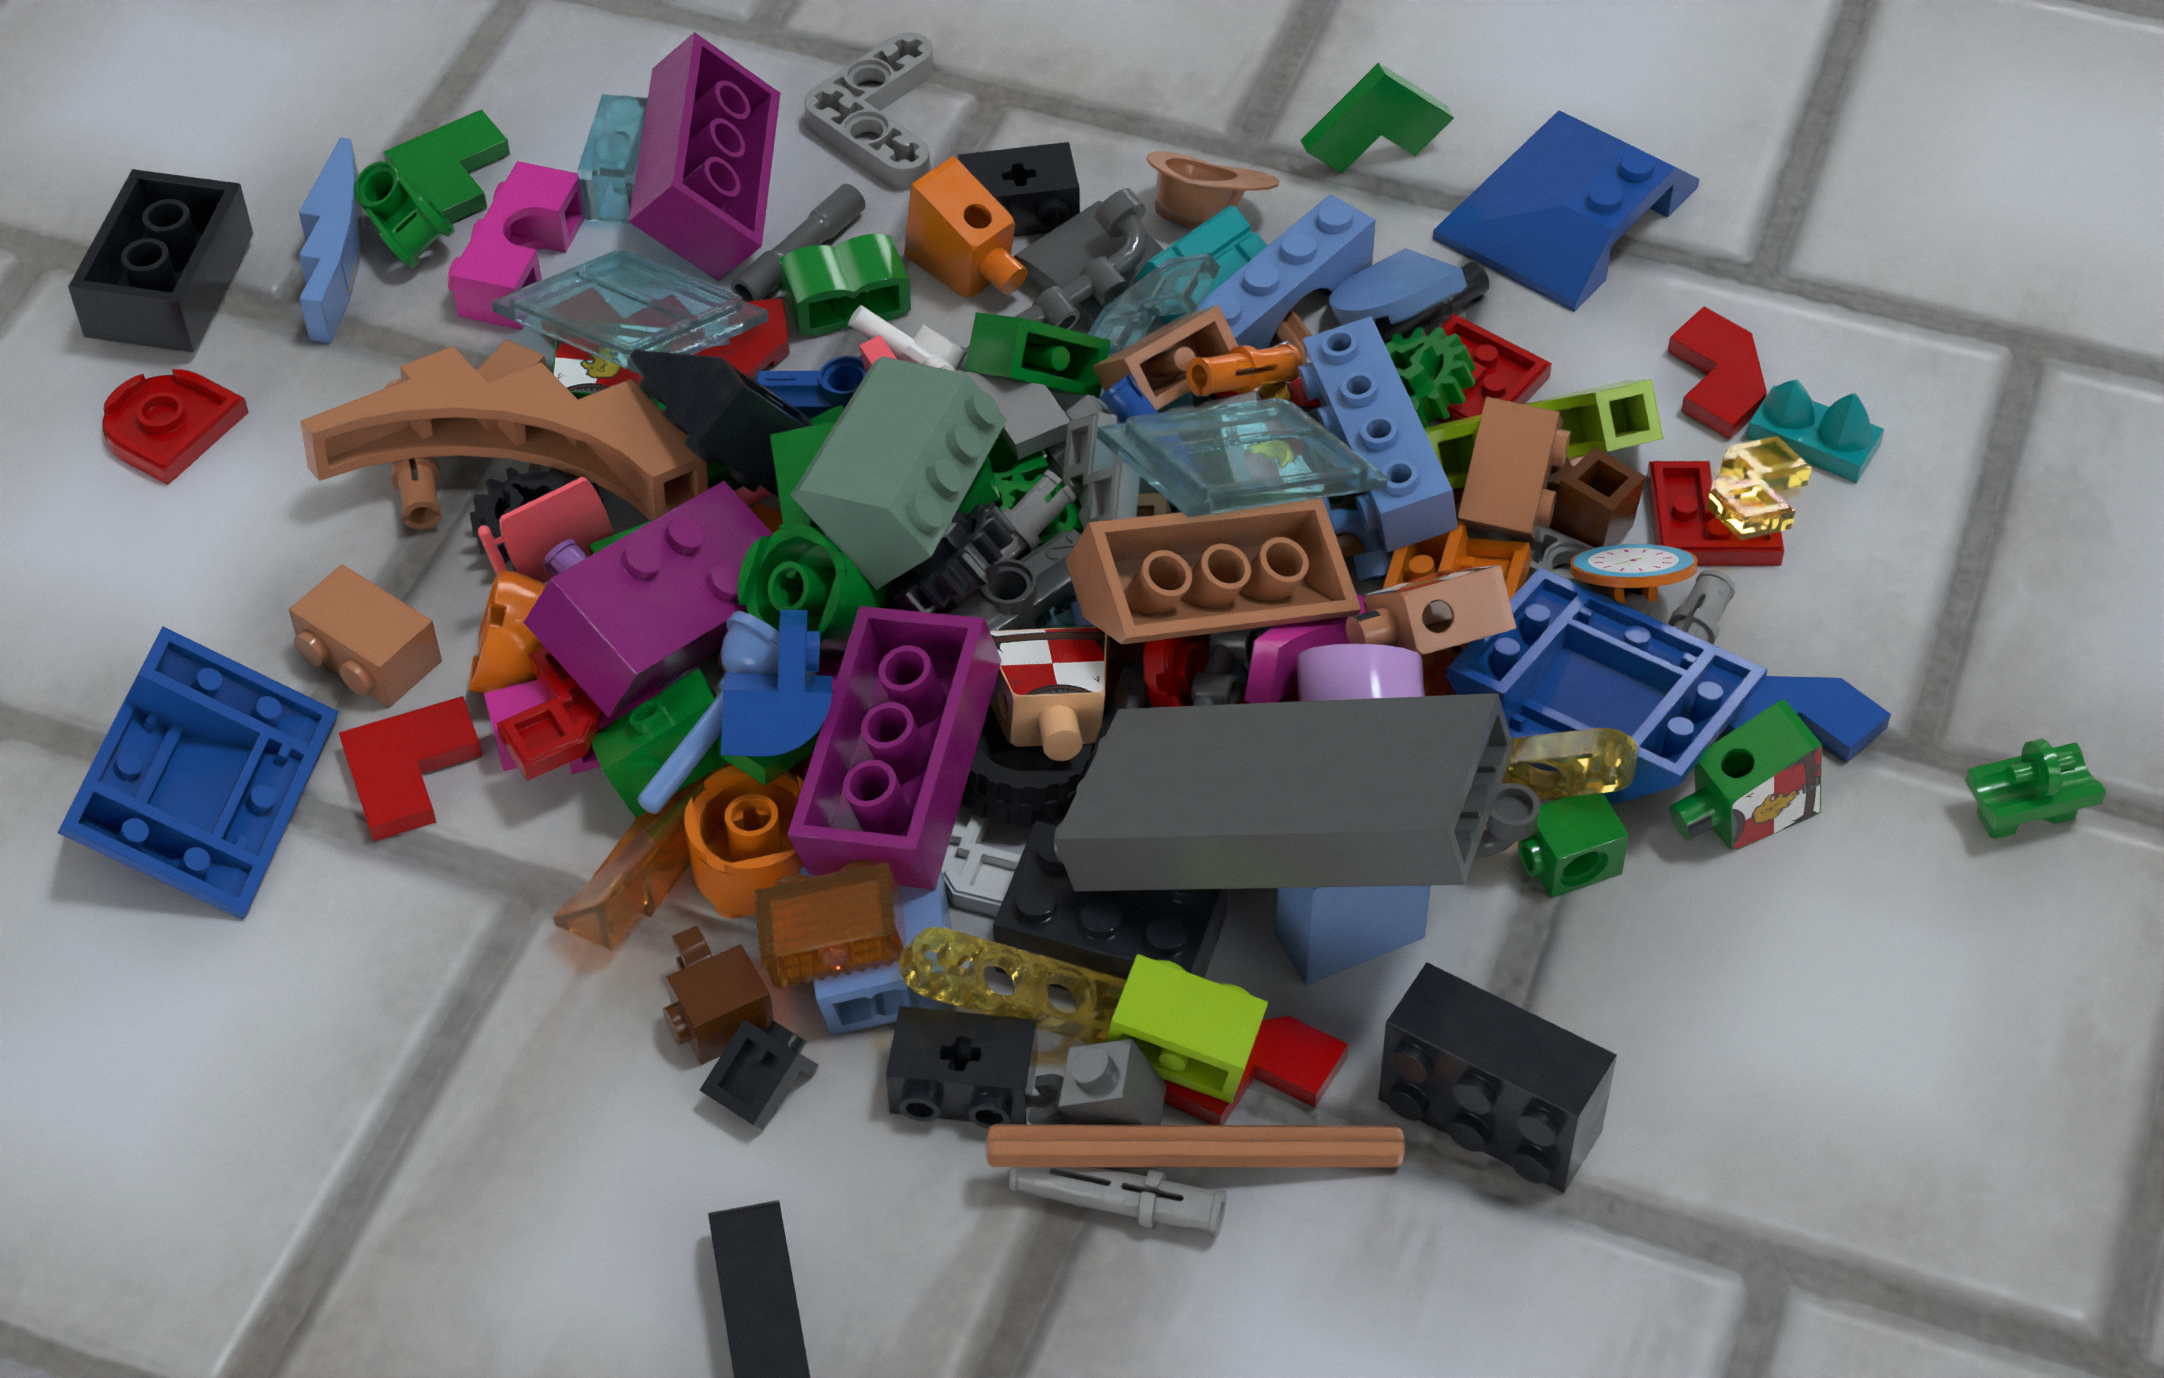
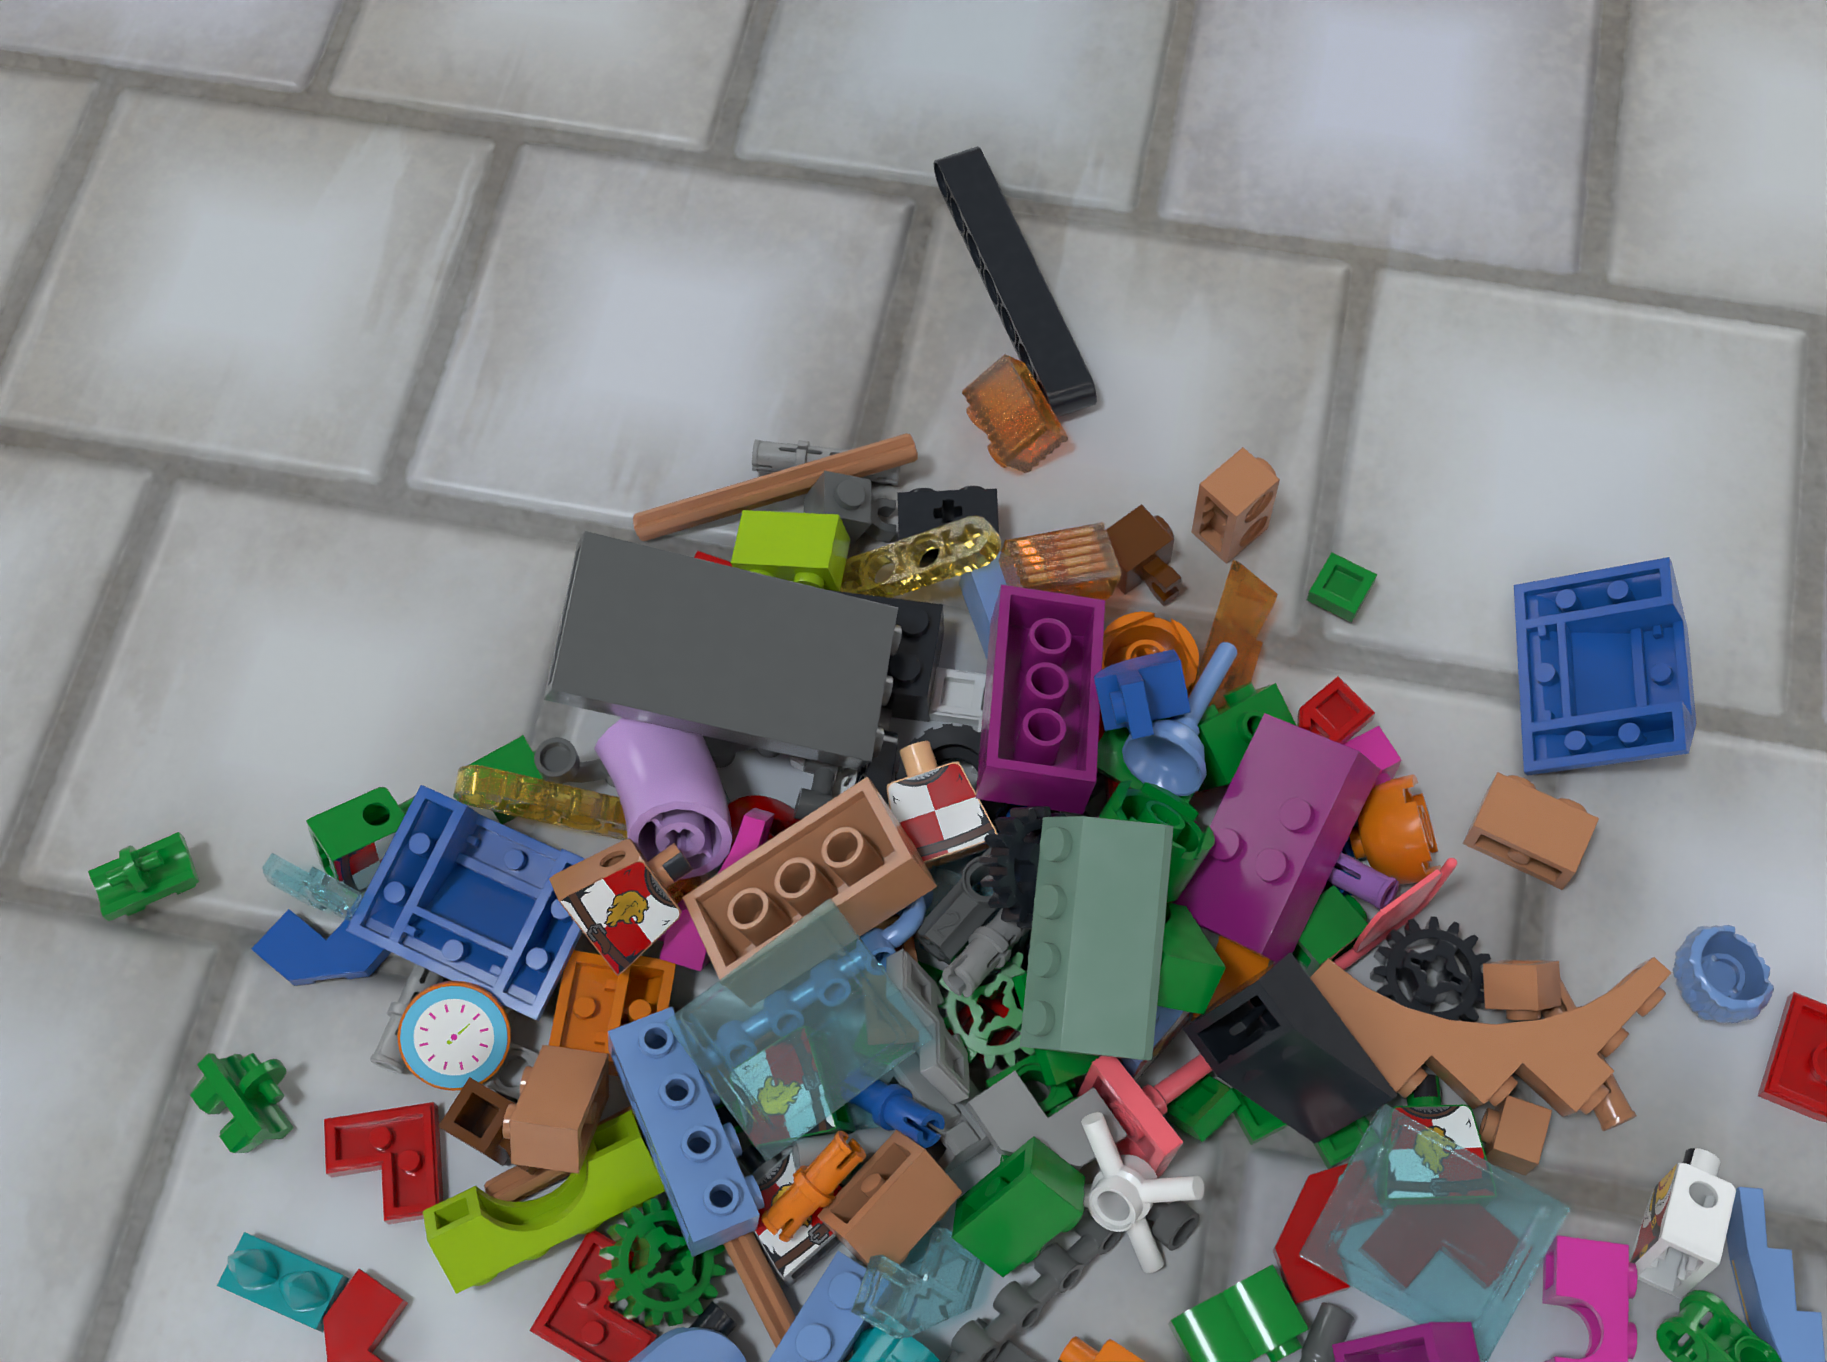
camera: 175 degrees right, 15 degrees up
(234, 466) = (1722, 975): none -> medium blue hair
(387, 289) = (1684, 1225): none -> white torso
(393, 755) = (1460, 733): red tile -> none
(450, 476) = (1522, 987): none -> nougat plate
(466, 926) = (1341, 587): none -> green plate
(569, 1006) = (1235, 504): none -> nougat brick
(757, 1071) = (1091, 501): black bracket -> none
(817, 390) = (1234, 1165): blue piece -> none
(834, 1199) = (1013, 415): none -> clear orange brick
(1495, 1077) = (537, 533): black brick -> none
(1747, 485) = (357, 1163): clear yellow tile -> none
(1848, 763) = (312, 888): none -> clear light blue tile
(1874, 570) = (250, 1095): none -> green hips

